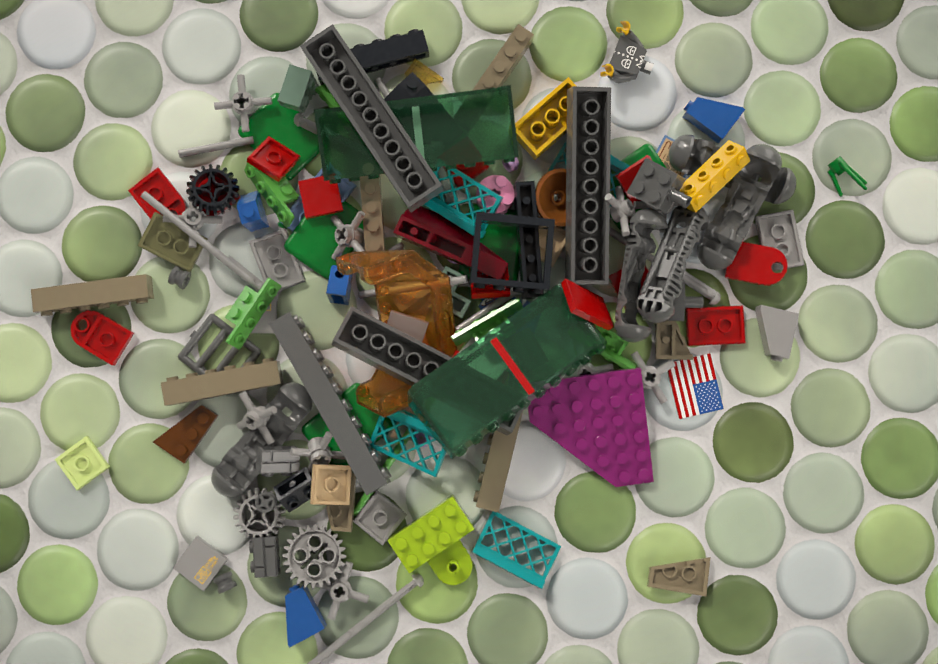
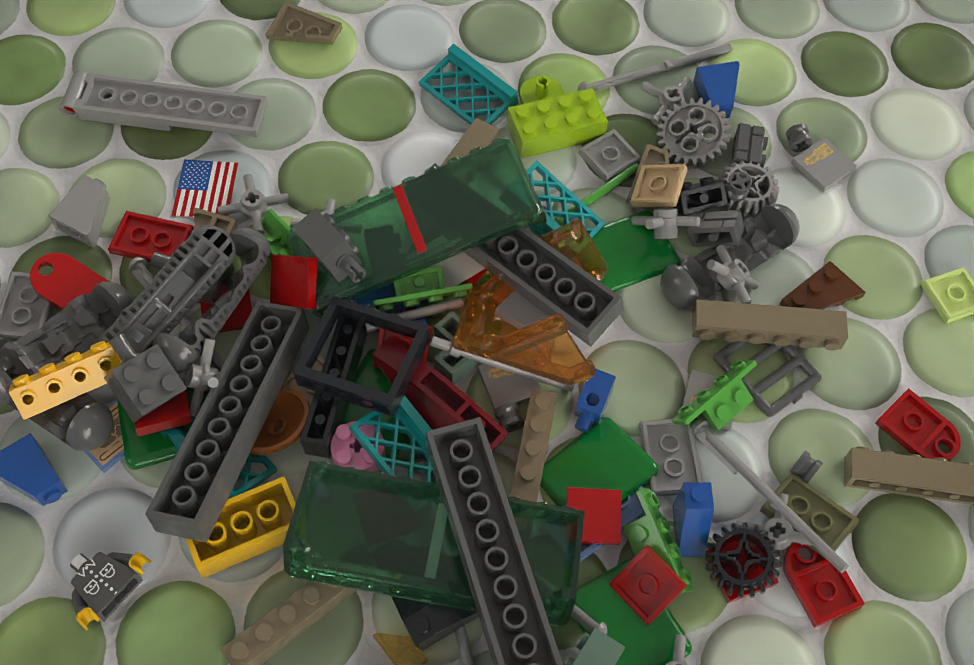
camera: 165 degrees left, 25 degrees down
(215, 147) = (728, 633): light grey bar -> none
(330, 403) = (641, 270): dark grey brick -> none
(348, 235) = (568, 450): light grey bar -> none
(562, 319) = (330, 246): none -> dark grey brick
(600, 423) = (322, 167): magenta plate -> none
(760, 449) = (161, 105): none -> light grey hinge

